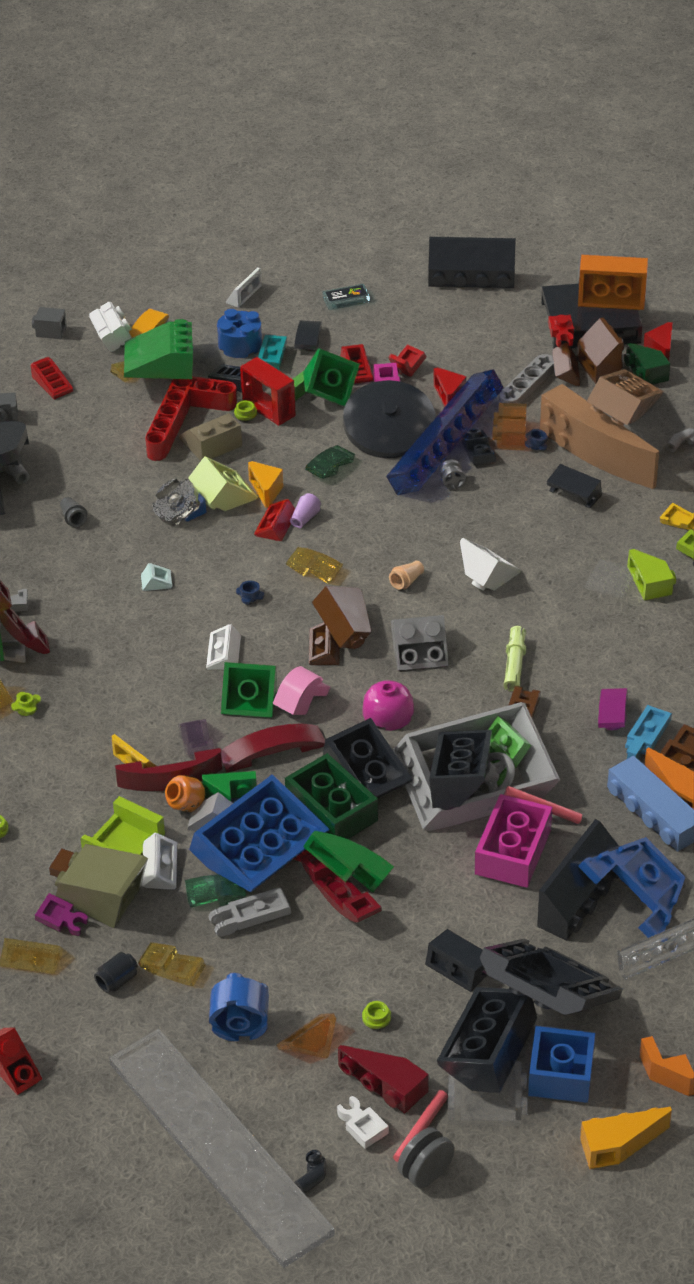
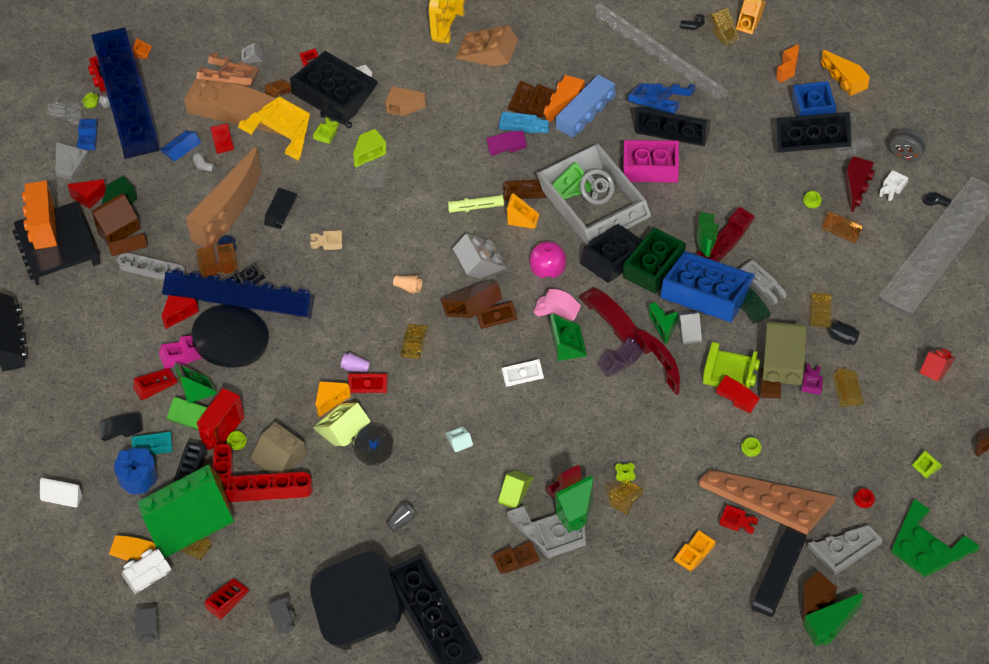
camera: 105 degrees left, 10 degrees up
(62, 608) = (514, 488): none -> slope
(88, 822) = (738, 393): none -> red slope
(127, 753) = (653, 387): yellow slope -> none
(161, 863) = (743, 342): white slope -> none
(184, 793) = (681, 341): orange head -> none
(239, 1008) = (849, 255): blue brick -> none
(250, 592) = (454, 368): dark blue plate -> none
(328, 462) = (290, 364): clear green slope -> none
(346, 296) = (55, 417): tile -> none
(408, 360) = (145, 346): red bracket -> none
(424, 1120) = (885, 163): coral bar -> none
(452, 474) = (286, 281): flat silver wheel -> none
(456, 959) = (754, 169): black hinge -> none
(458, 766) = (609, 190): black slope -> none
(477, 691) = (521, 213): none -> light orange slope
(485, 566) = (387, 236): white slope -> none
(507, 520) = (329, 240): none -> tan plate
(547, 977) = (762, 110): black wedge -> none
(557, 810) = (618, 161): coral bar -> none
(561, 328) = (94, 246): red plate -> none
(623, 396) = (188, 181): medium nougat slope -> none

